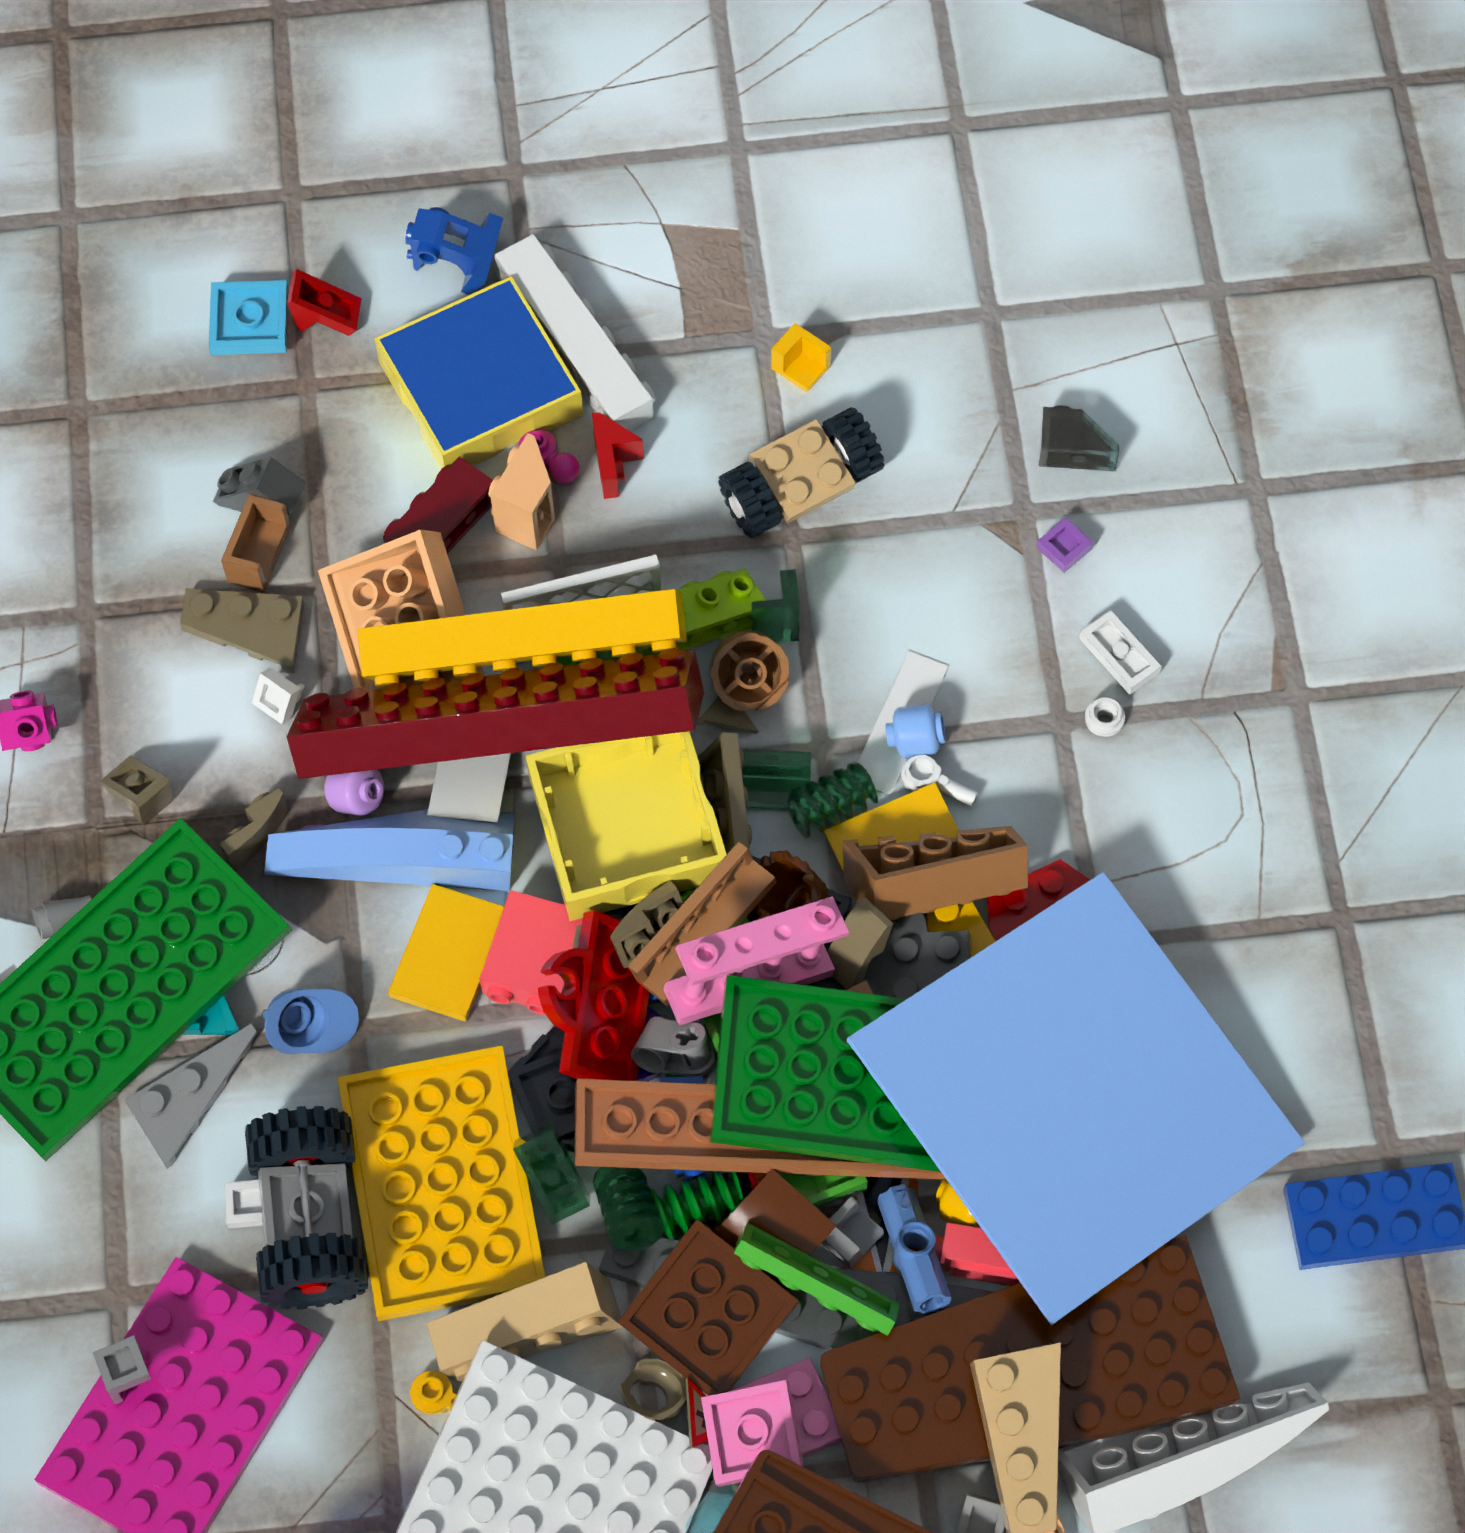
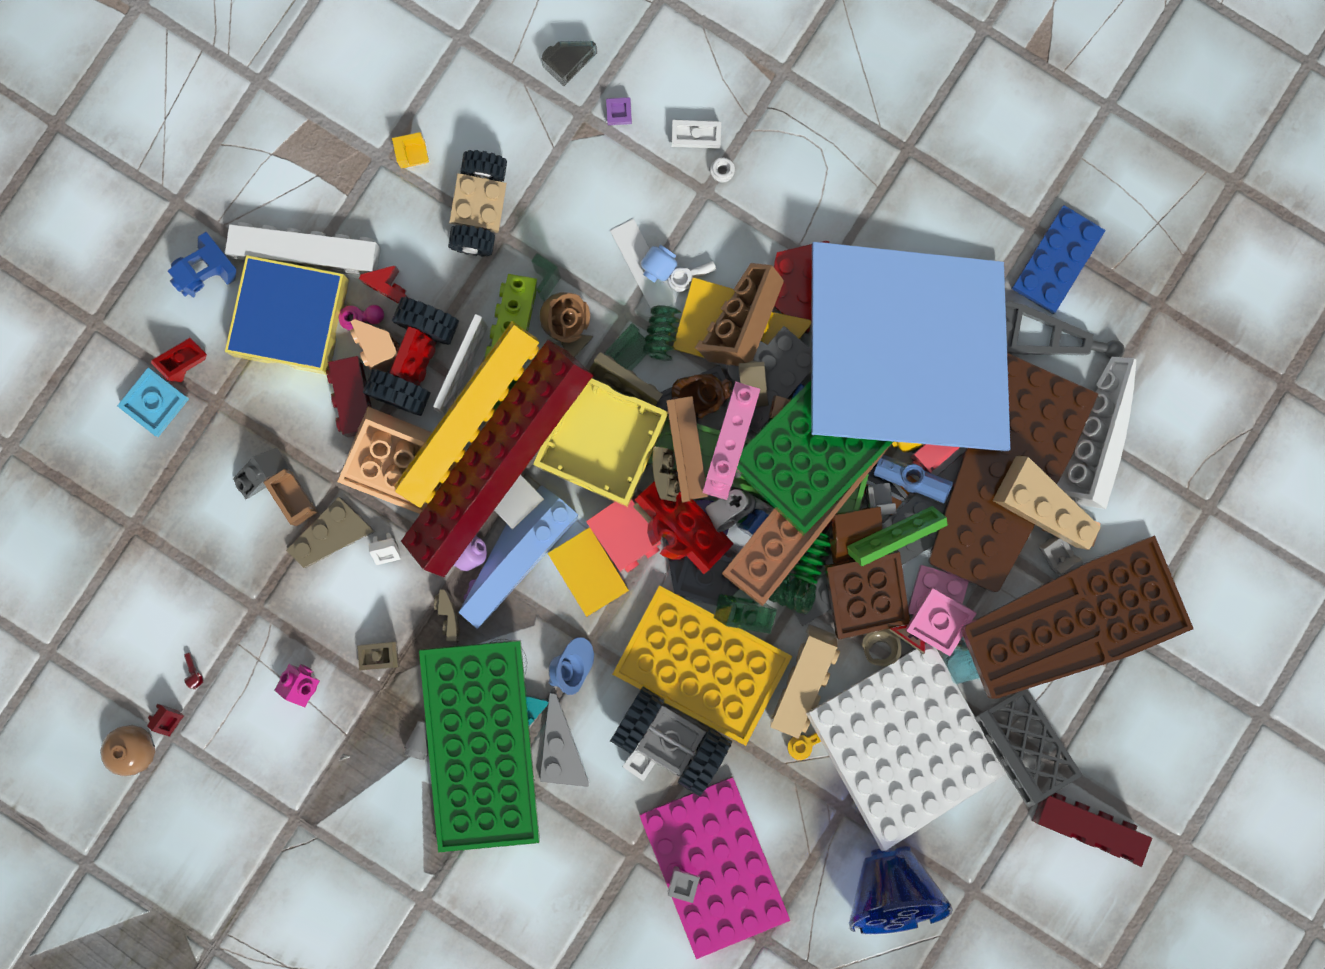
camera: 50 degrees left, 20 degrees up
(545, 537) = (424, 329): none -> black plate
(1231, 1219) = (1013, 321): none -> dark grey plate

